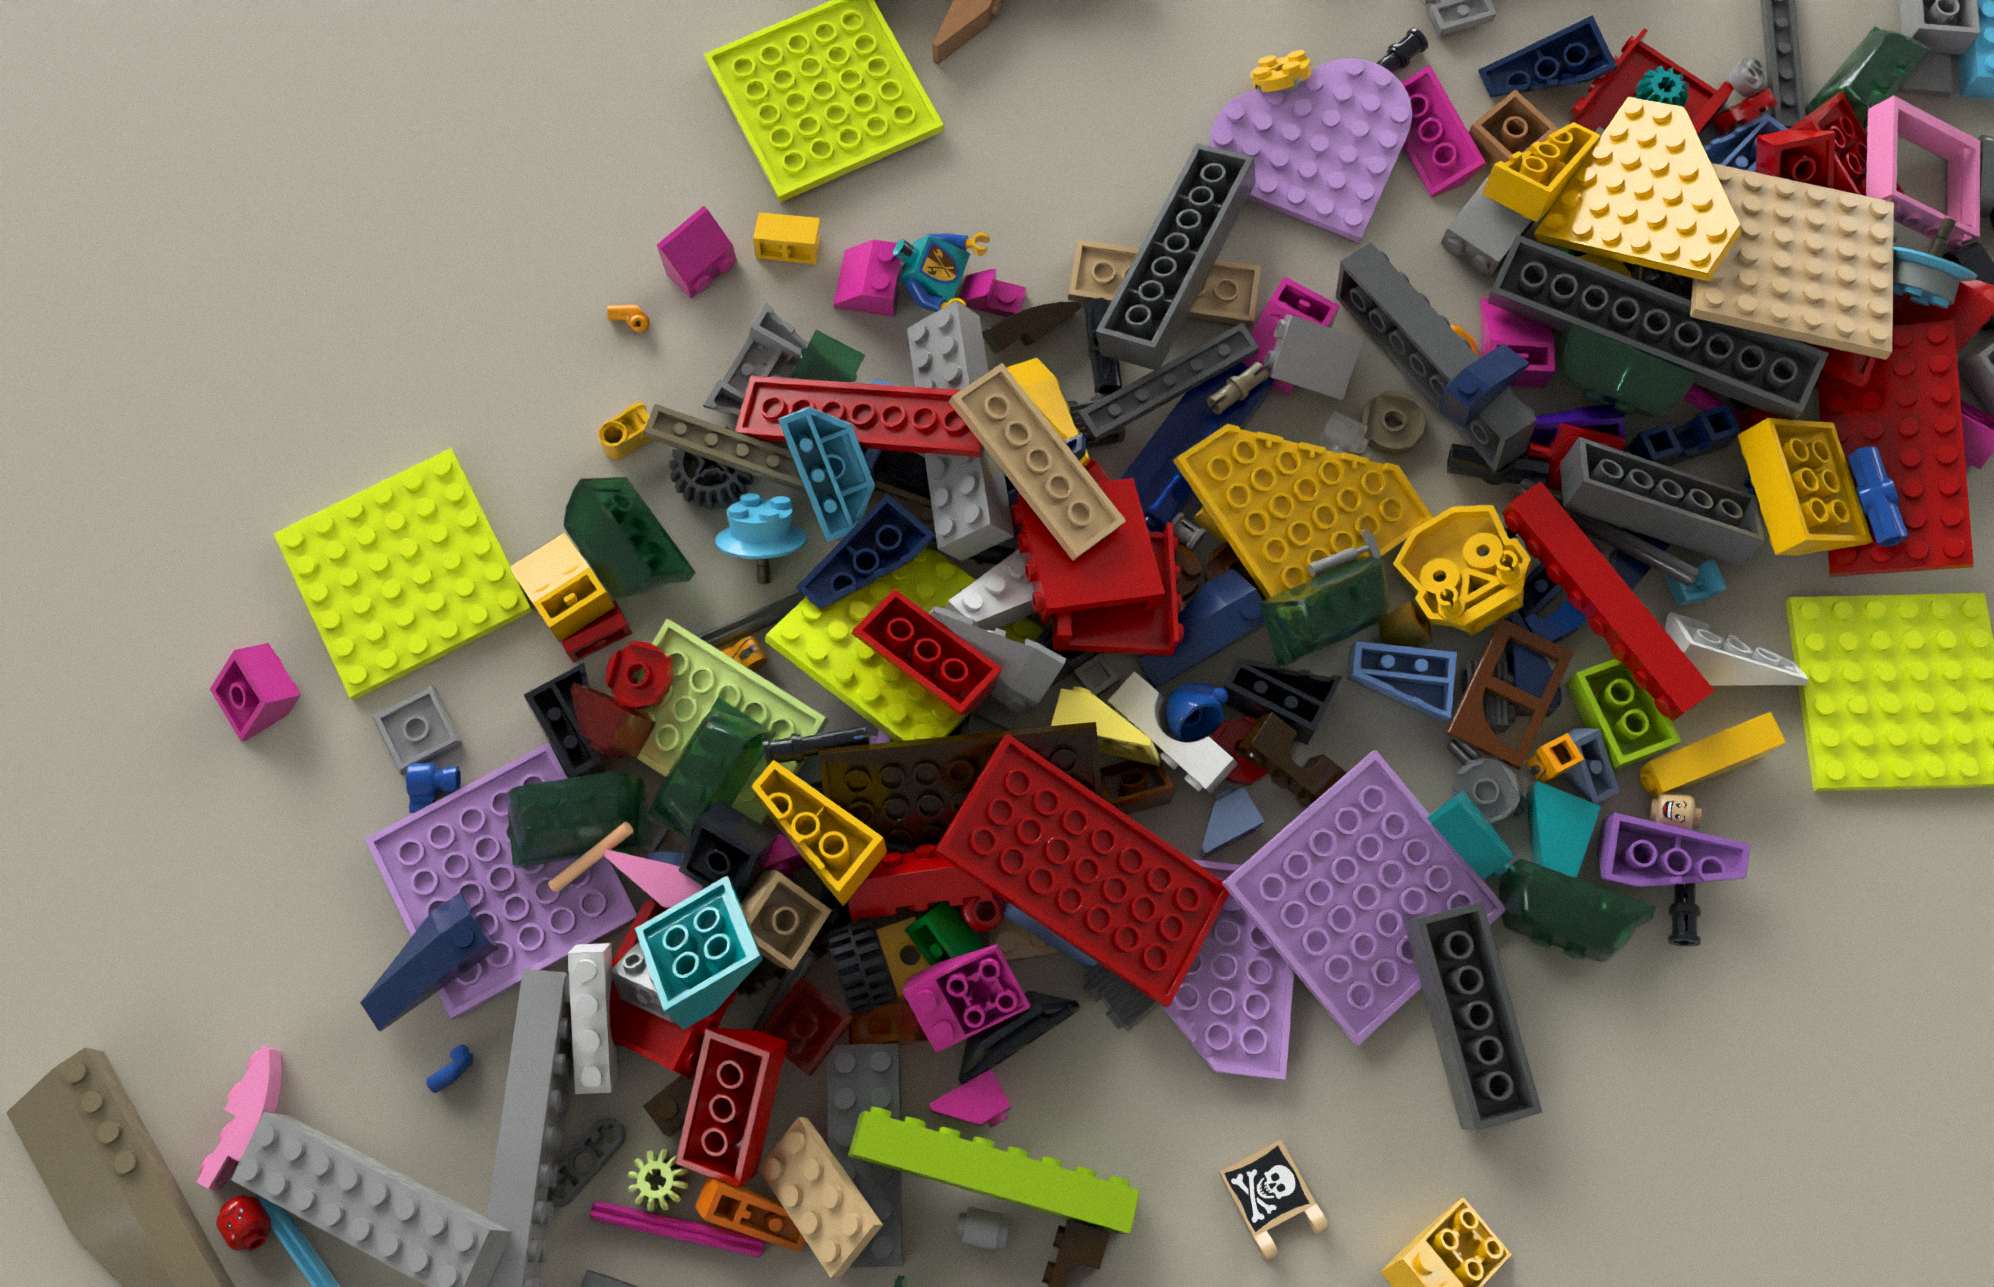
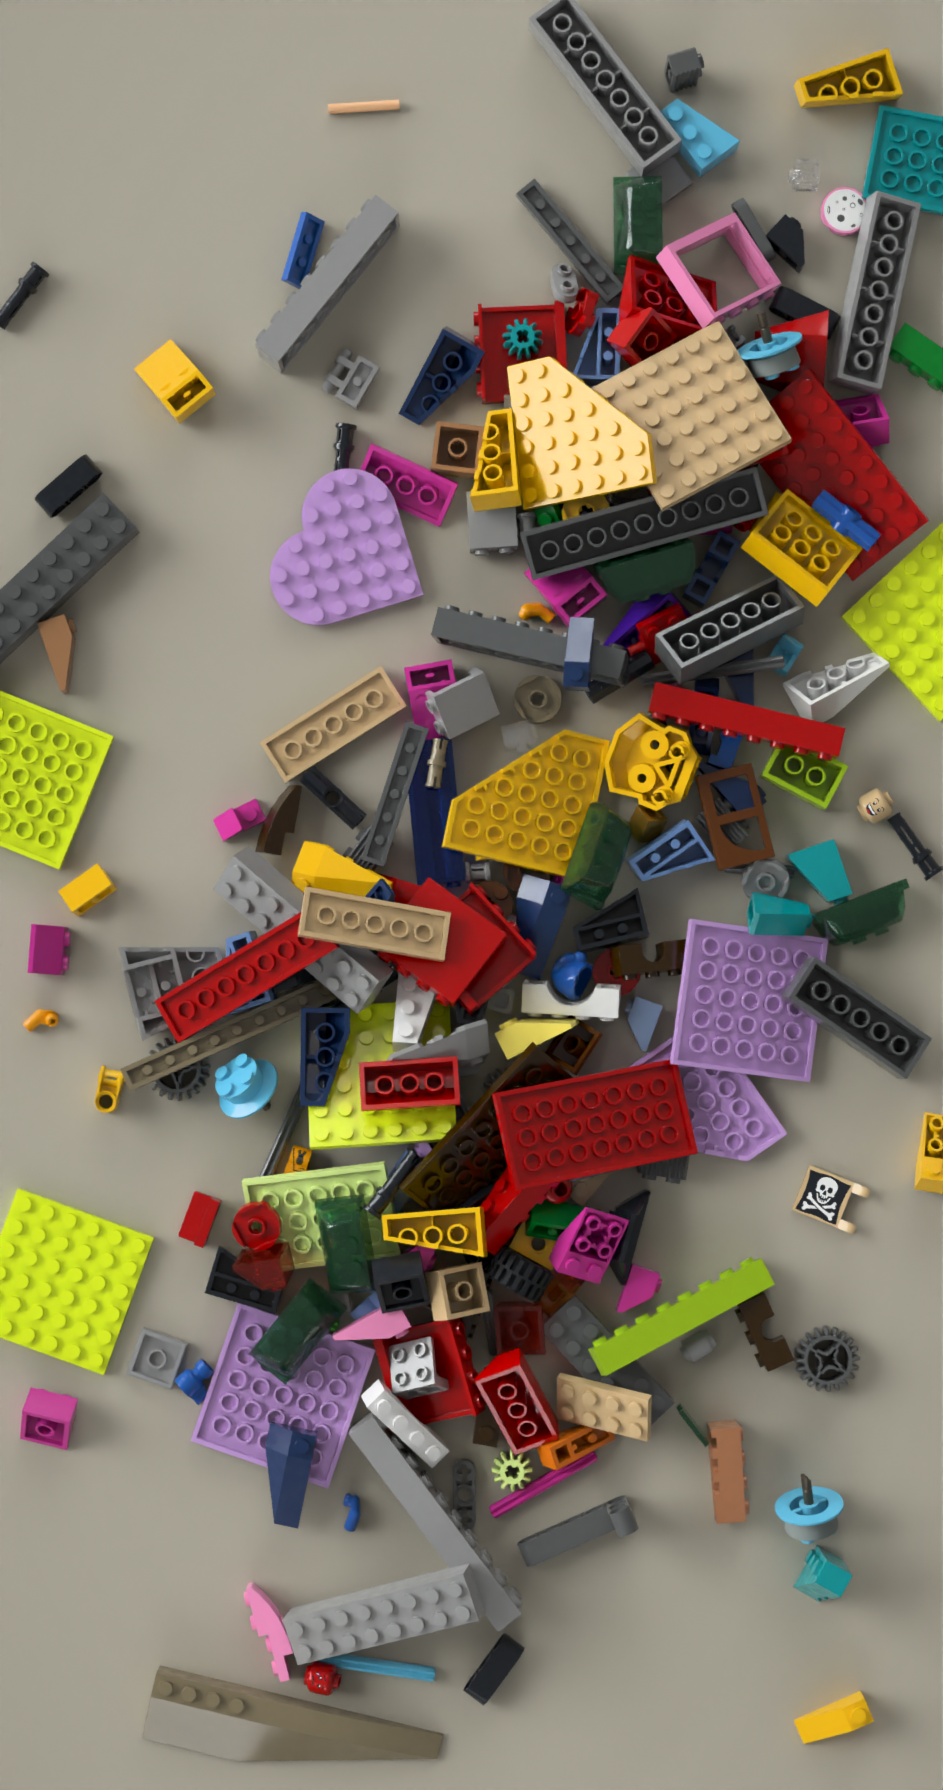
camera: 40 degrees left, 15 degrees up
(562, 587) = (159, 1212): yellow slope -> none
(590, 857) = (325, 1345): light nougat bar -> none
(622, 538) = (171, 1156): clear green windscreen -> none
(699, 952) = (436, 1347): teal slope -> none
(828, 360) = (188, 950): clear green piece -> none
(829, 468) = (259, 1024): medium azure wedge -> none
(869, 279) = (159, 873): dark pink slope -> none
(936, 266) = (195, 837): torso -> none
(1176, 257) = (332, 710): dark grey brick -> none
(1280, 73) = (286, 514): yellow plate -> none
(1346, 556) = (581, 813): light grey piece -> none
(1551, 761) = (789, 834): light orange leg -> none
(1593, 775) = (806, 819): sand blue slope -> none
(1658, 854) = (885, 841): medium lavender wedge -> none
(1712, 756) = (869, 757): yellow slope -> none

